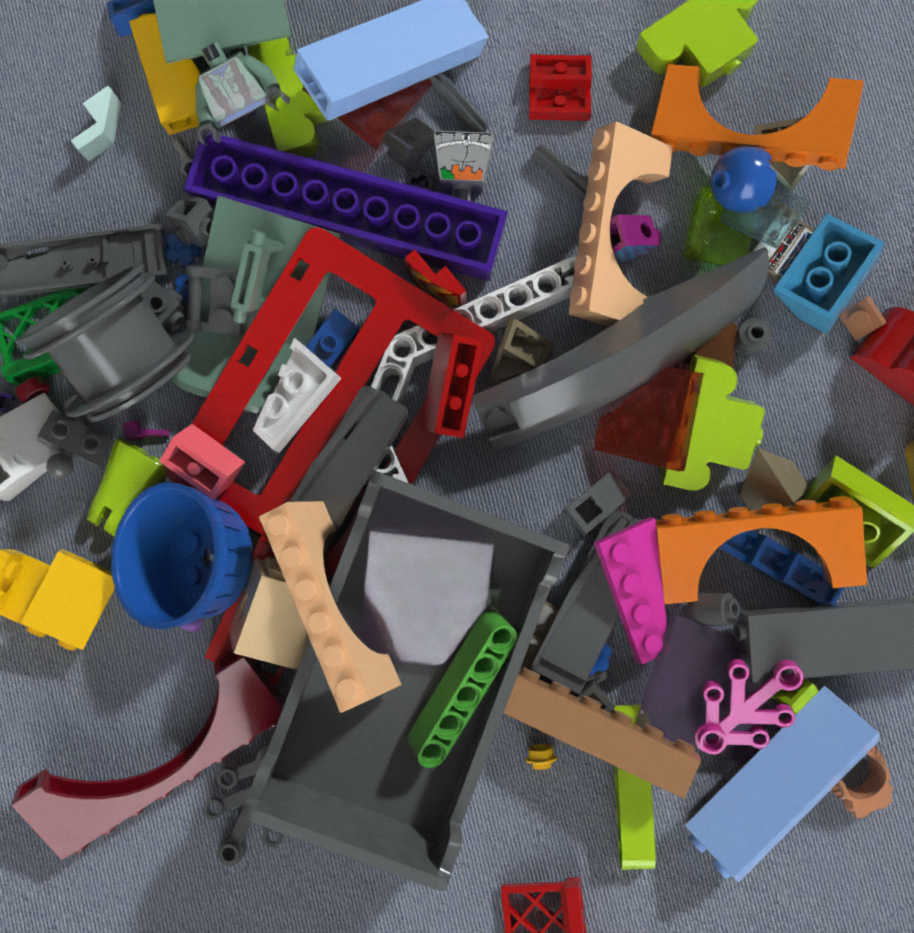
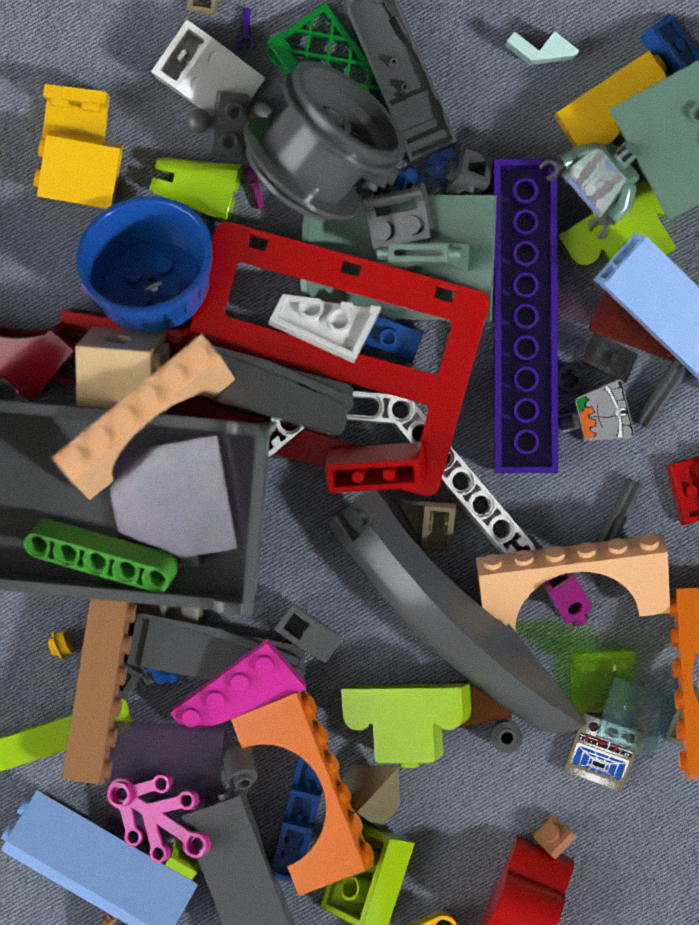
camera: 70 degrees right, 5 degrees up
(32, 388) = (264, 67): dark red tile -> none
(186, 160) = (532, 142): light grey hand -> none
(202, 461) = (239, 259): coral brick -> none
(441, 285) = (470, 431): red slope -> none
(654, 421) = (394, 664): clear red plate -> none
(743, 179) = (646, 685): blue cylinder -> none
(828, 272) = (587, 791): dark azure slope -> none

